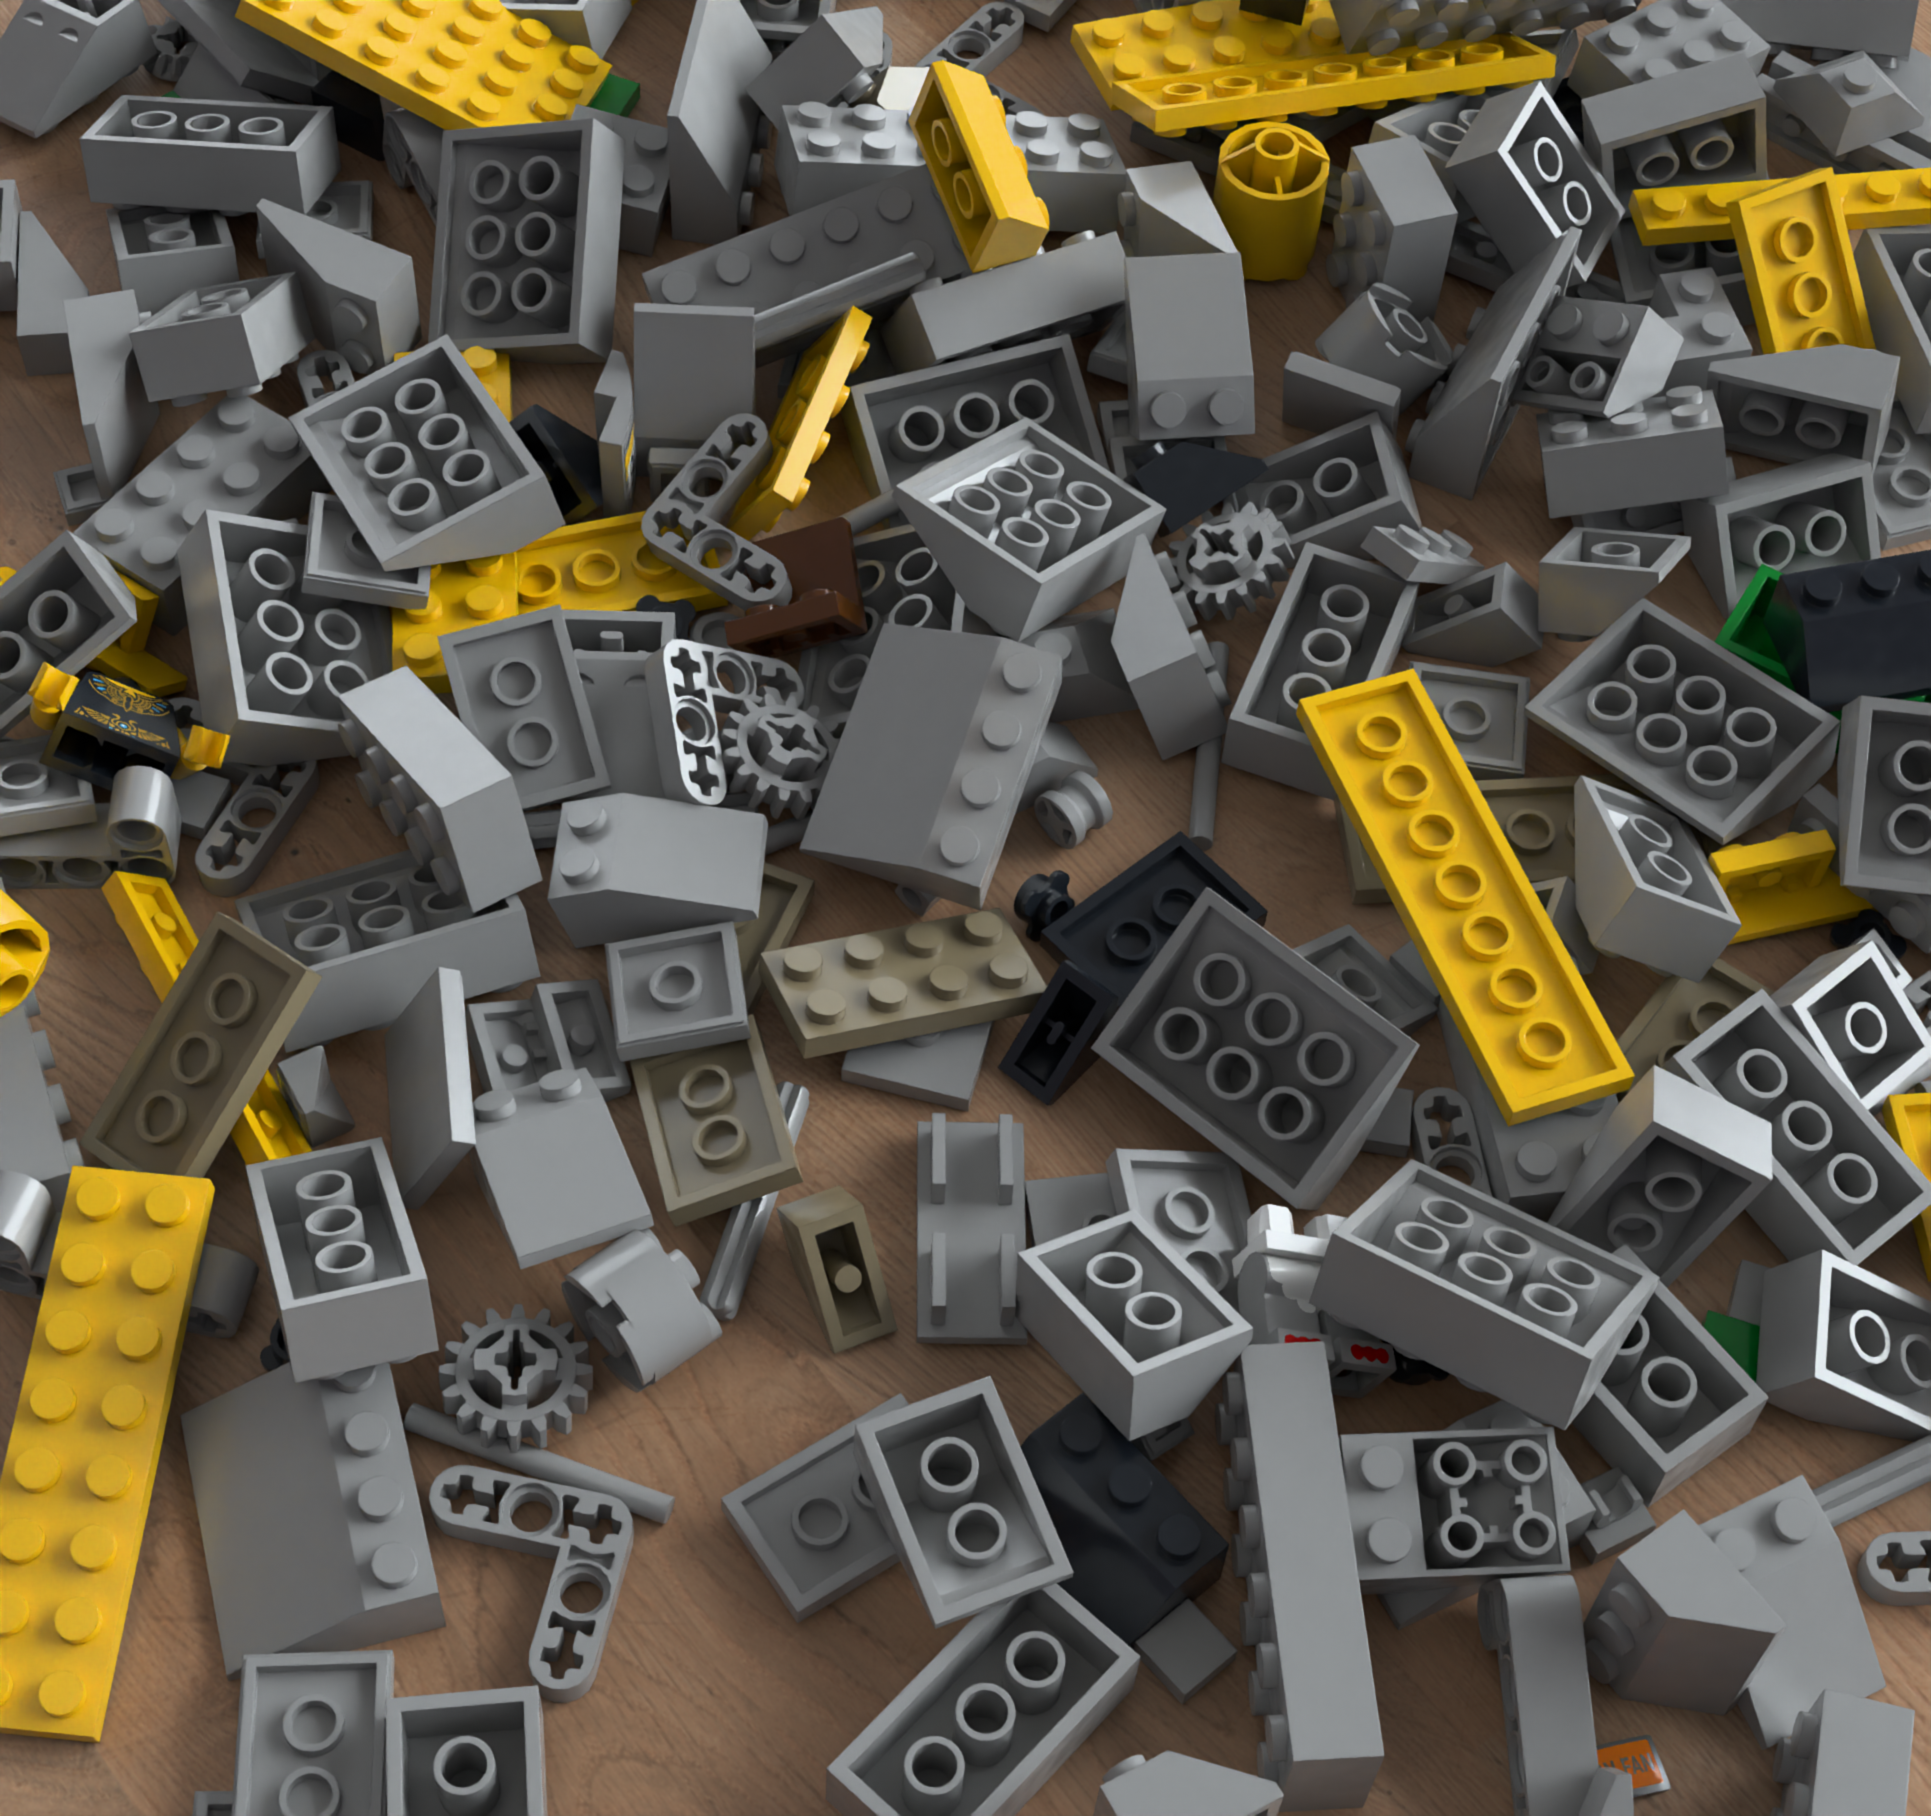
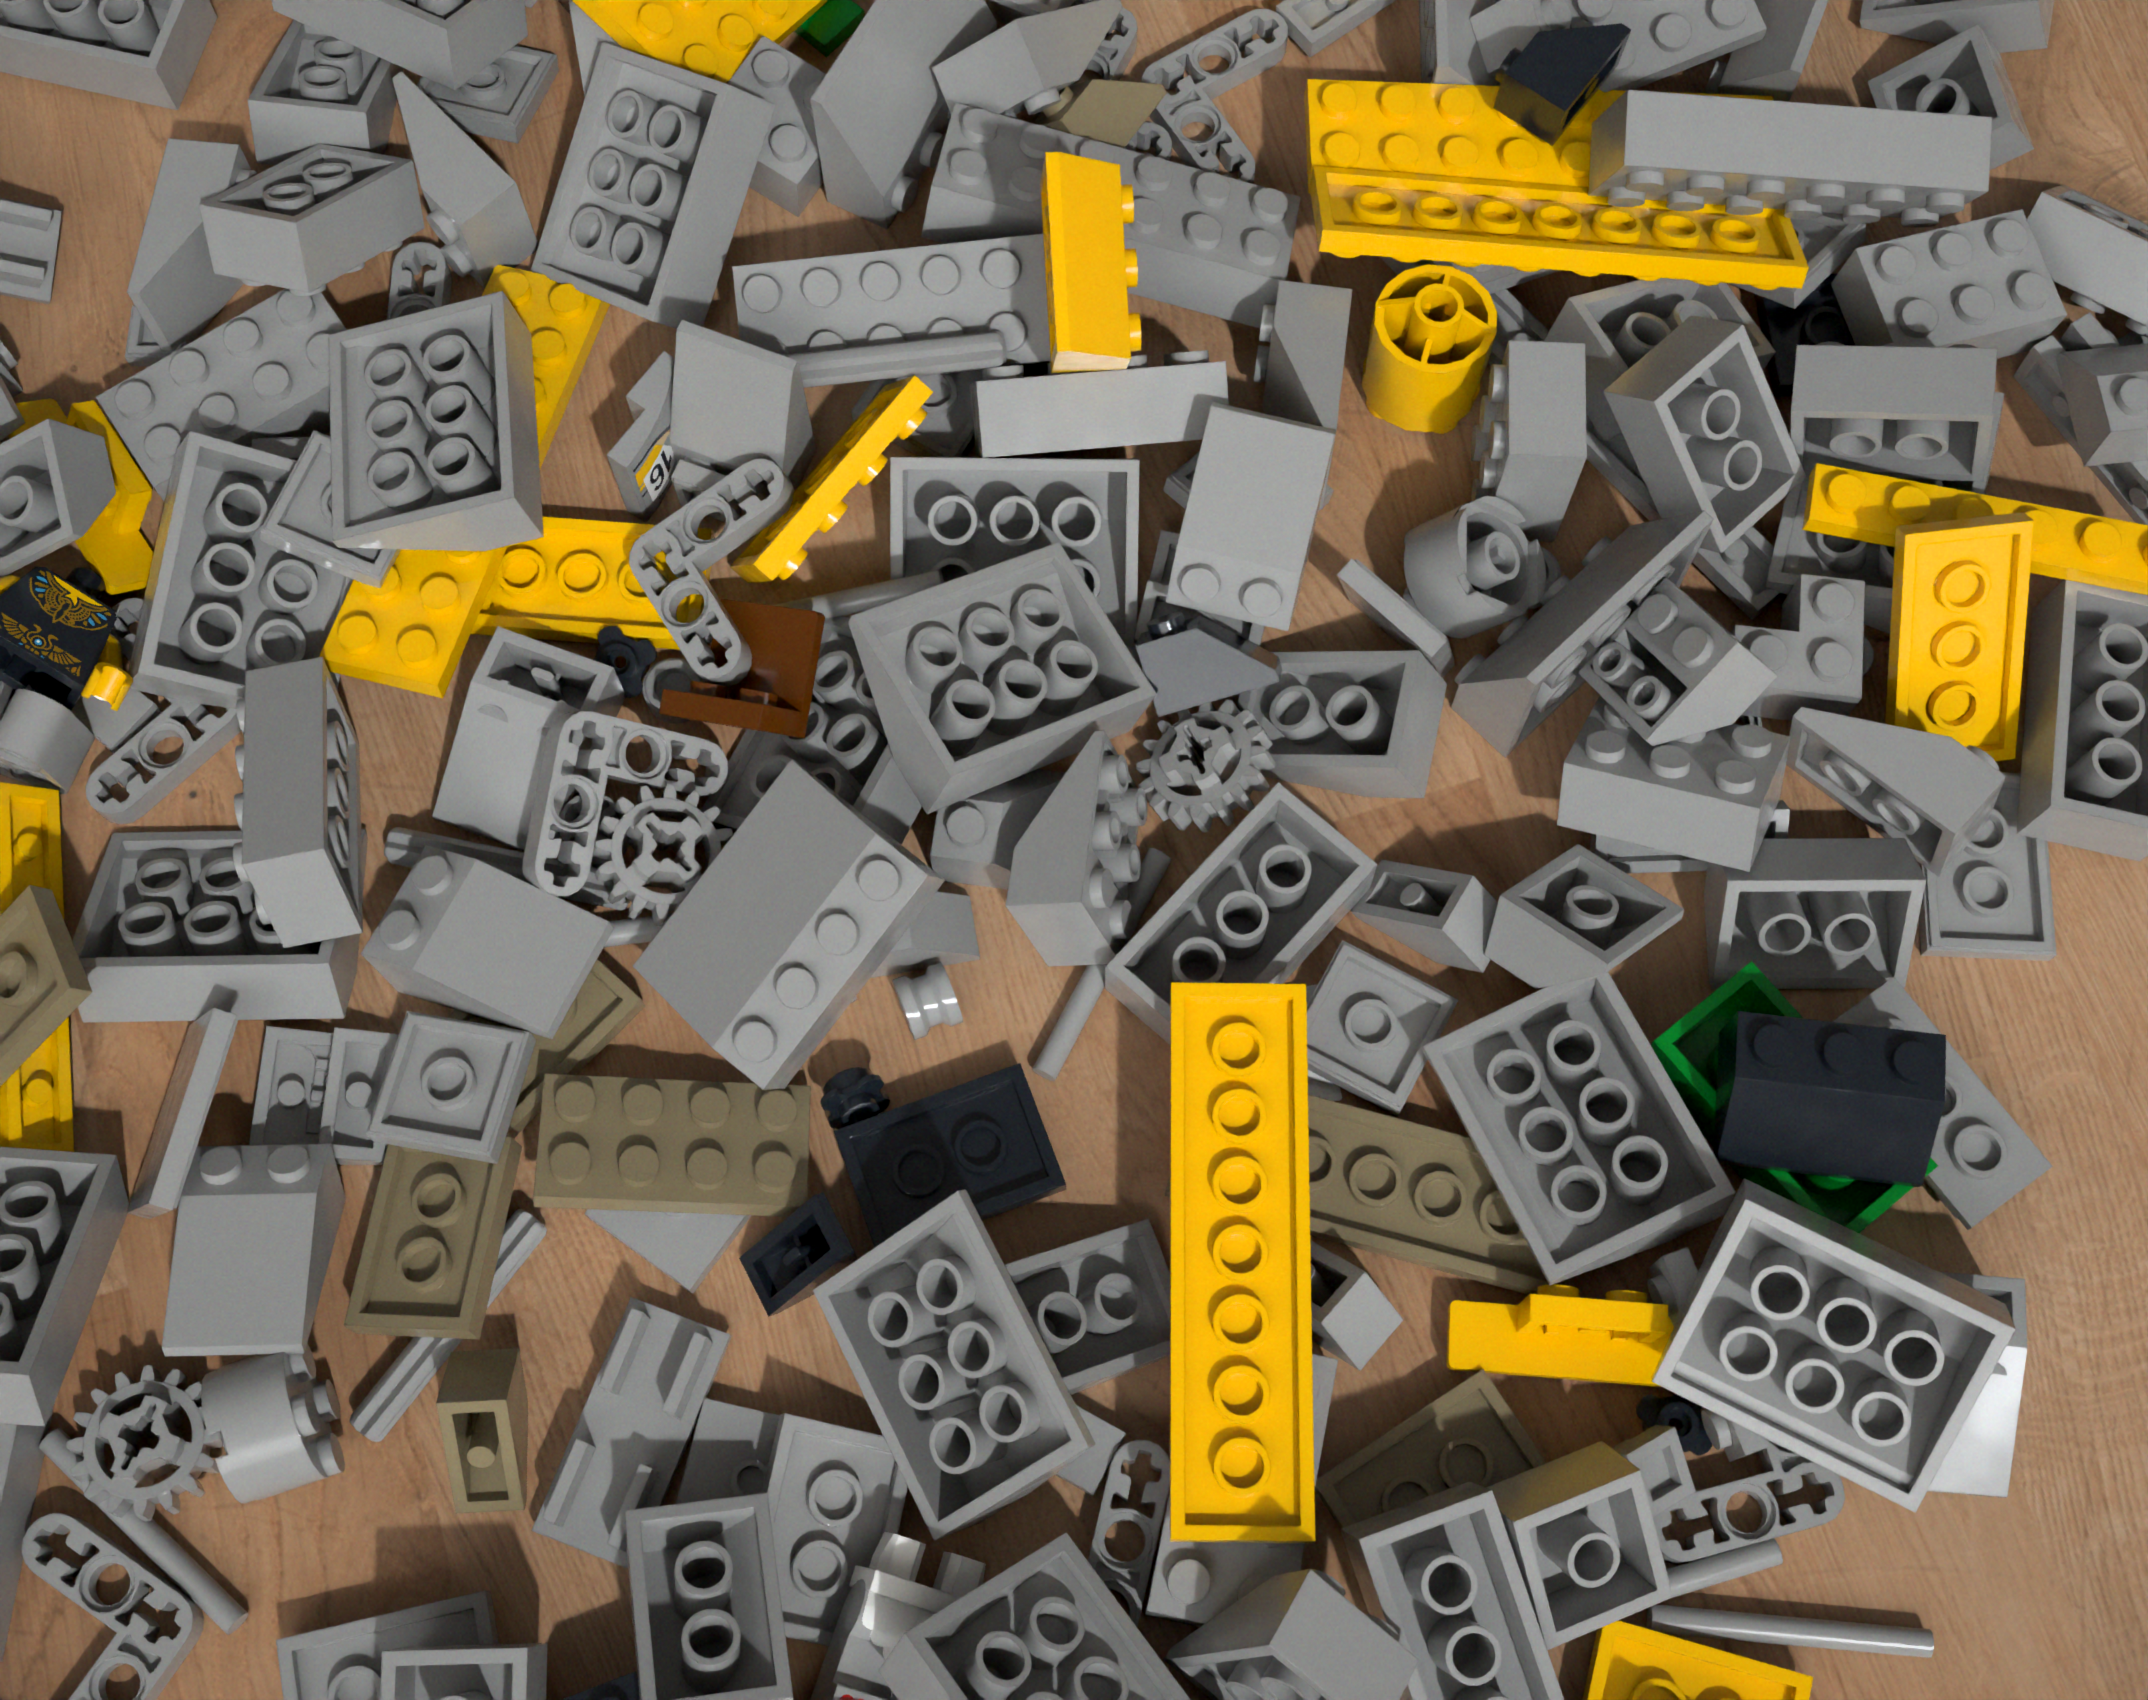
camera: 25 degrees right, 15 degrees up
(43, 283) = (197, 95): light grey slope -> none
(313, 1096) = (92, 1076): light grey slope -> none
(527, 704) = (424, 736): light grey plate -> none
(566, 458) = (577, 441): black slope -> none
(1422, 554) = (1396, 833): light grey plate -> none
(1646, 884) = (1448, 1300): light grey slope -> none

